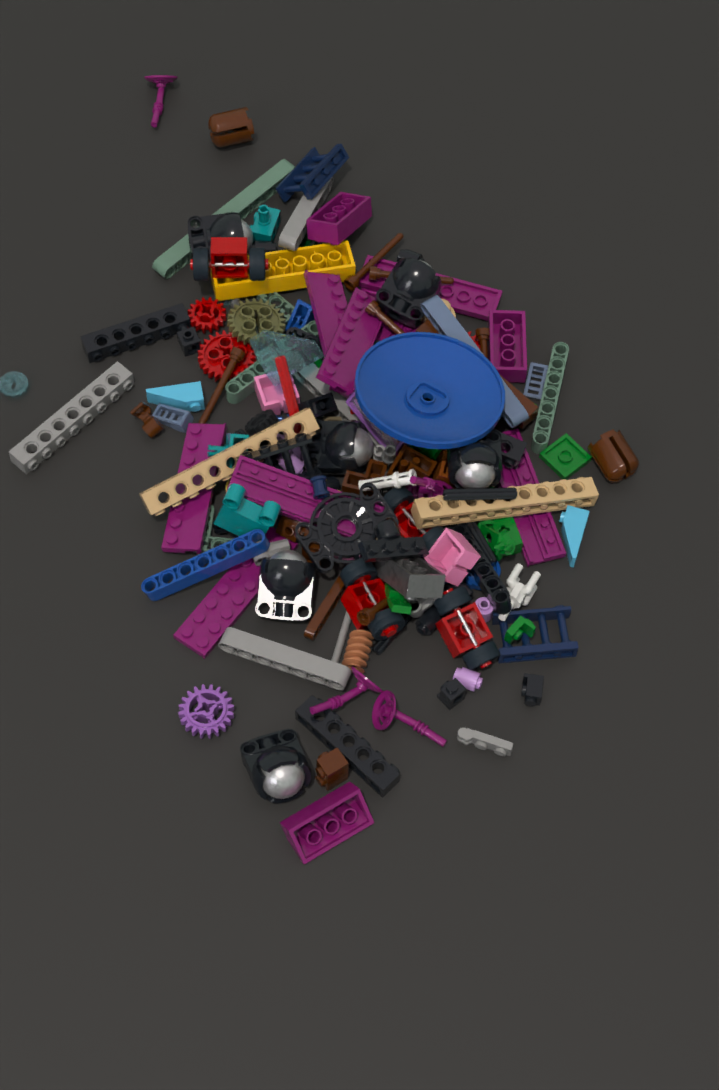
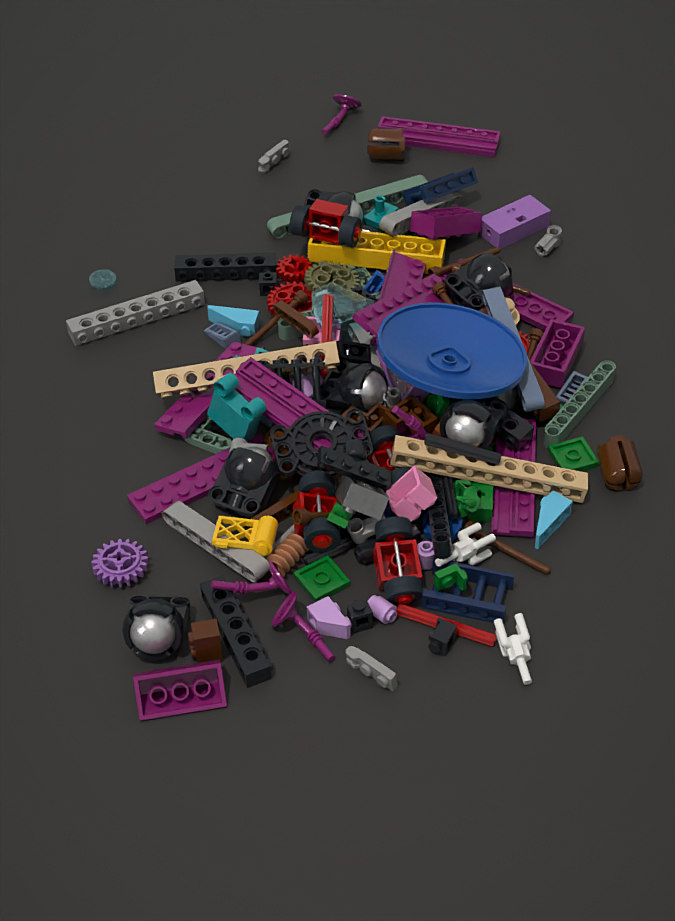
camera: 25 degrees right, 15 degrees down
(116, 173) = (273, 156): none -> light grey hinge
(151, 424) = (200, 332): reddish brown leg -> none
(215, 566) = (182, 444): blue beam -> none
(248, 385) = (296, 319): none -> reddish brown beam
(277, 98) = (445, 136): none -> magenta plate
(319, 487) = (310, 400): dark blue bush -> none
(329, 641) = (260, 536): none -> yellow piece
(395, 480) = (387, 418): white pin -> none
(398, 664) = (321, 579): none -> green tile
(401, 193) = (514, 222): none -> medium lavender brick
(425, 706) = (328, 619): none -> lavender slope
(443, 208) = (549, 241): none -> light grey piece
(509, 566) = (511, 551): none -> reddish brown piece
(518, 673) = (462, 629): none -> red axle
(599, 677) = (515, 646): none -> white plant

